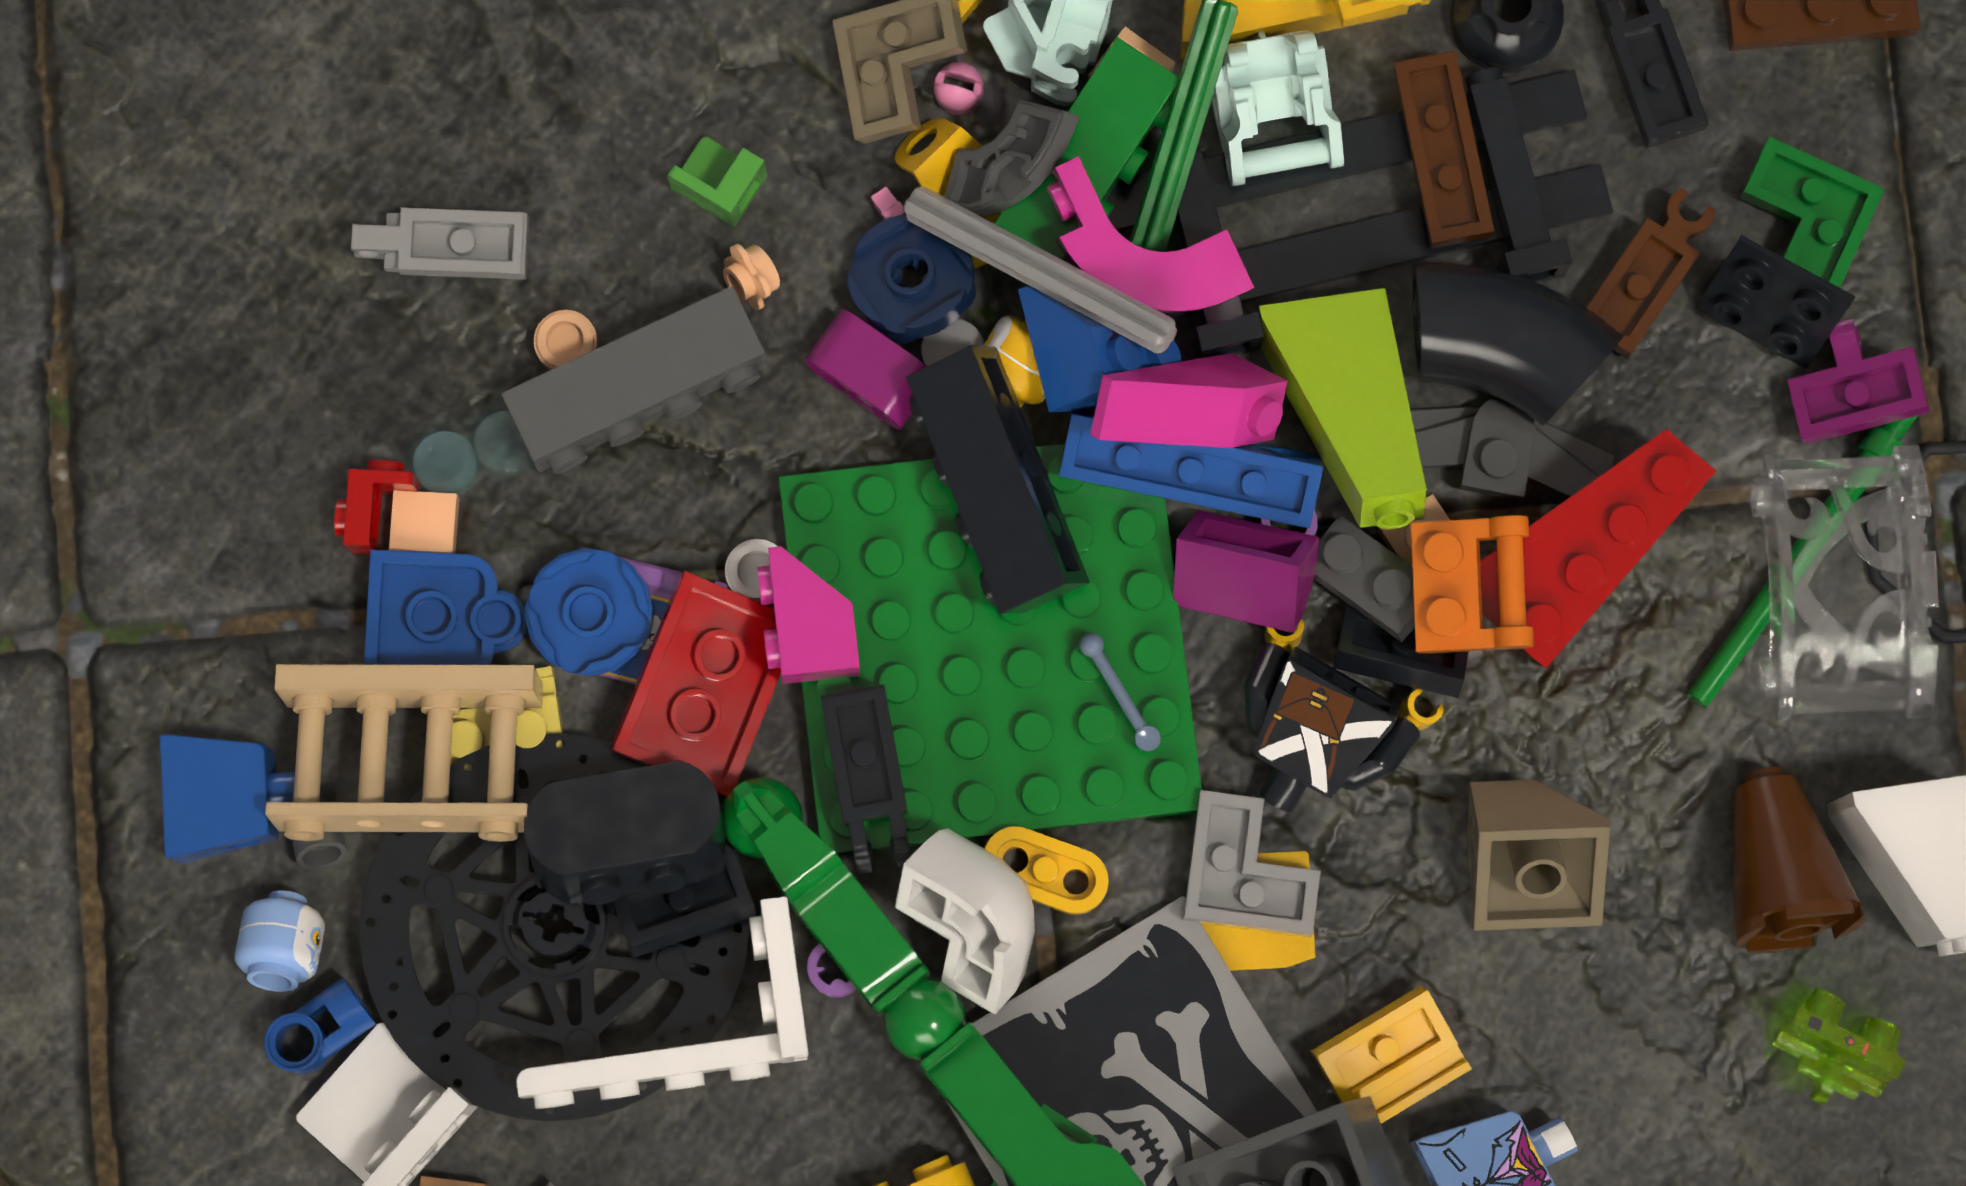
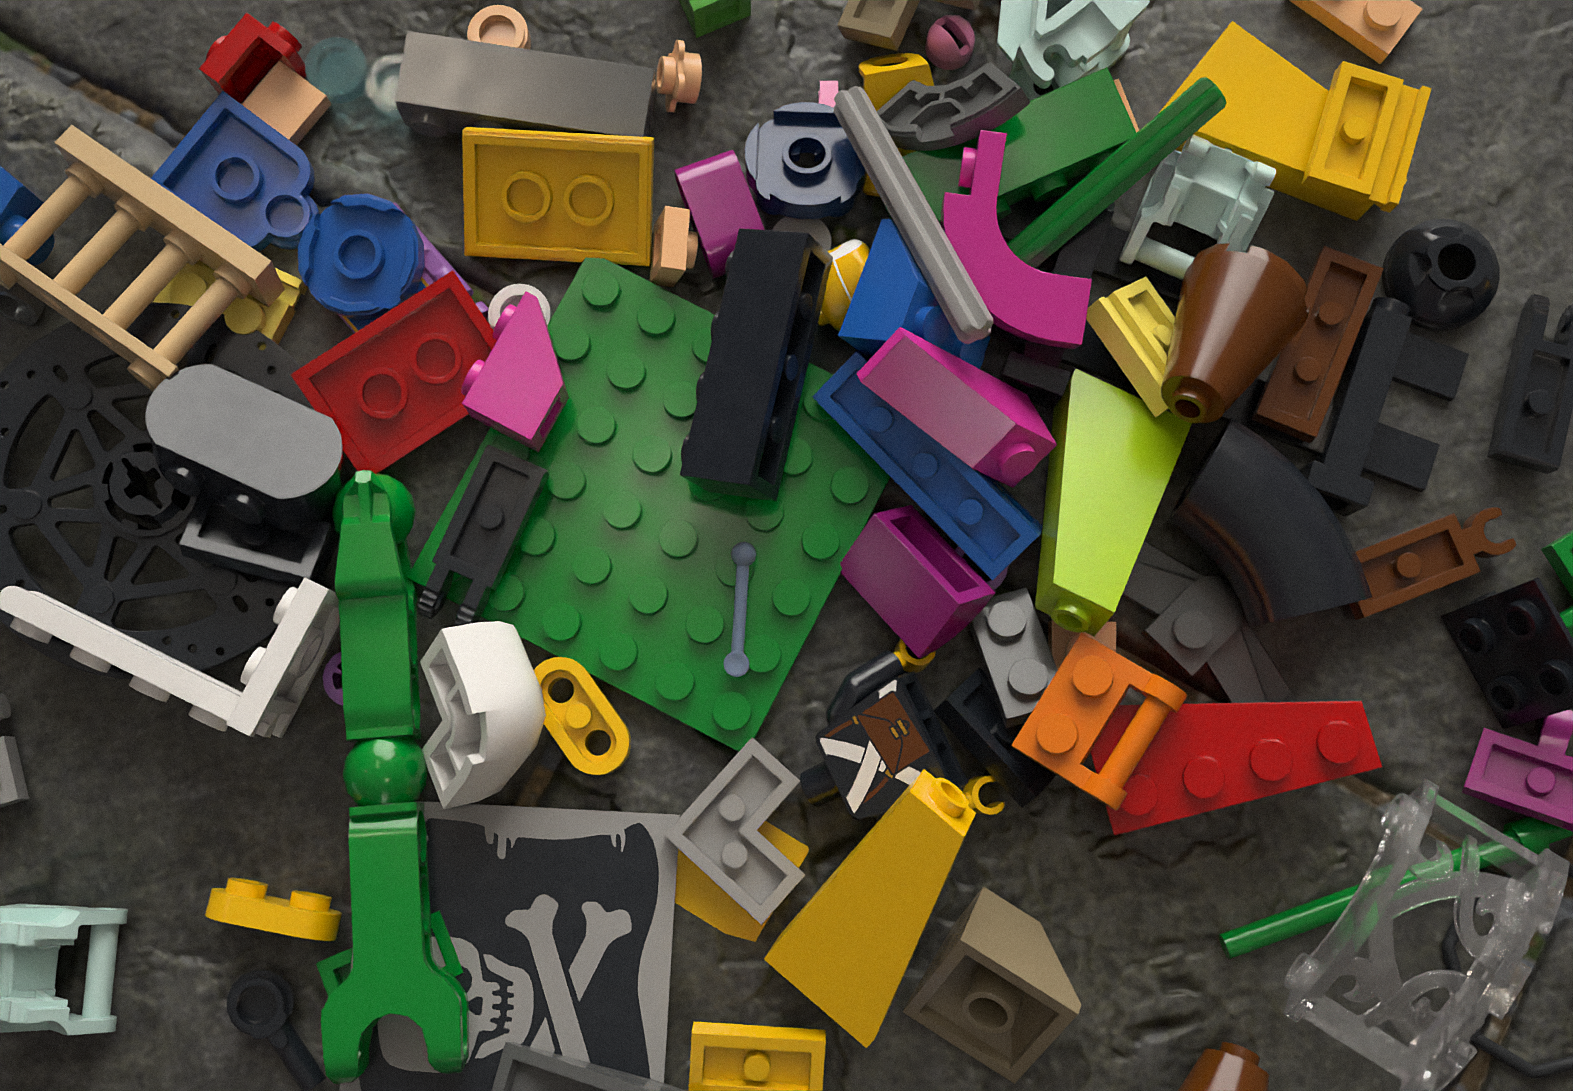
camera: 30 degrees right, 0 degrees up
(723, 448) = (557, 195): none -> yellow tile
(848, 427) = (672, 246): none -> light nougat plate
(1307, 245) = (1138, 335): none -> light yellow plate
(1363, 194) = (1228, 328): none -> reddish brown cone
(1394, 863) = (868, 917): none -> yellow slope

